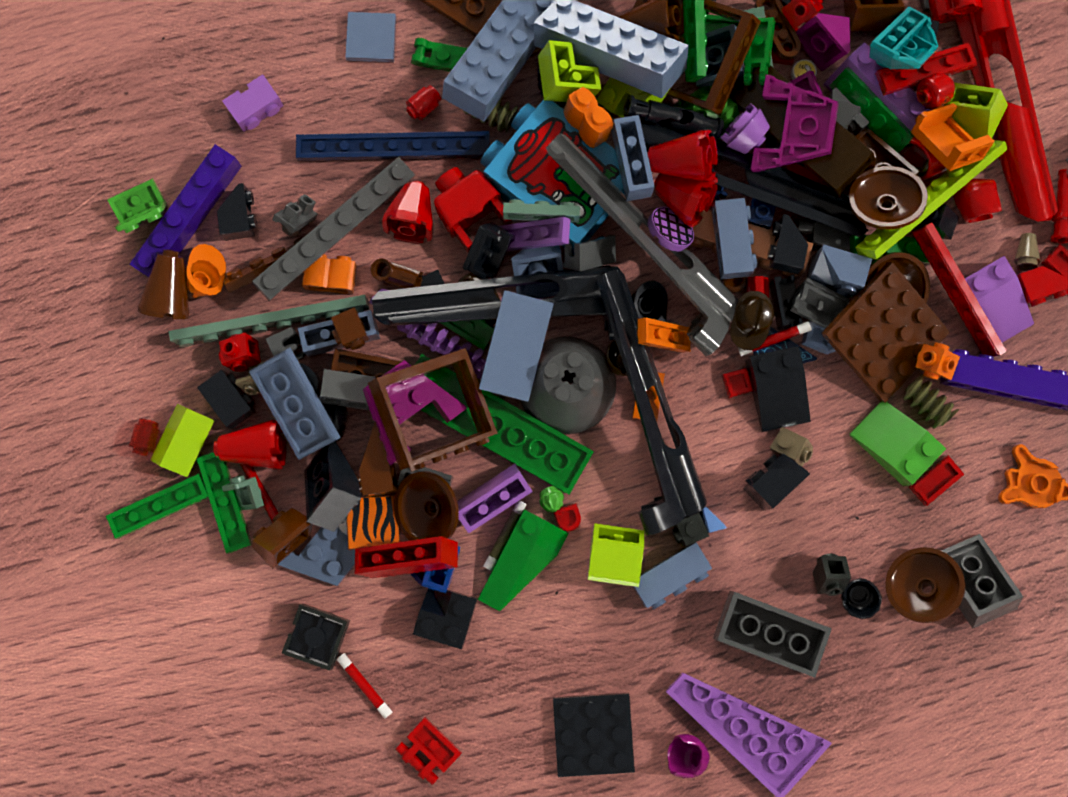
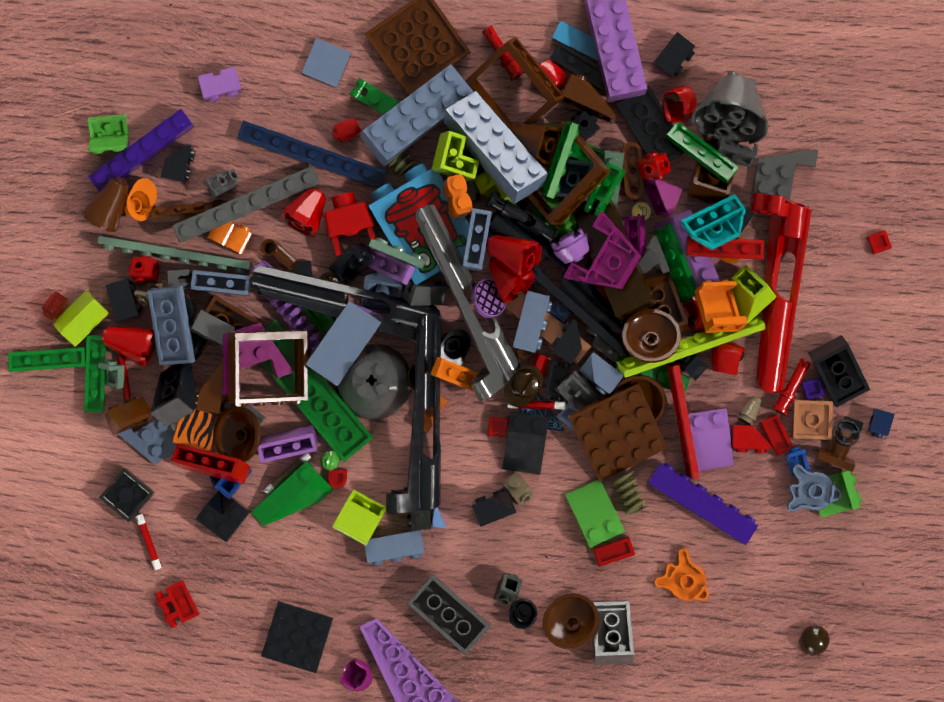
camera: 30 degrees right, 5 degrees up
(349, 329) = (229, 287): reddish brown brick -> none
(935, 90) = (723, 267): red head -> none
(937, 361) = (644, 466): orange brick -> none

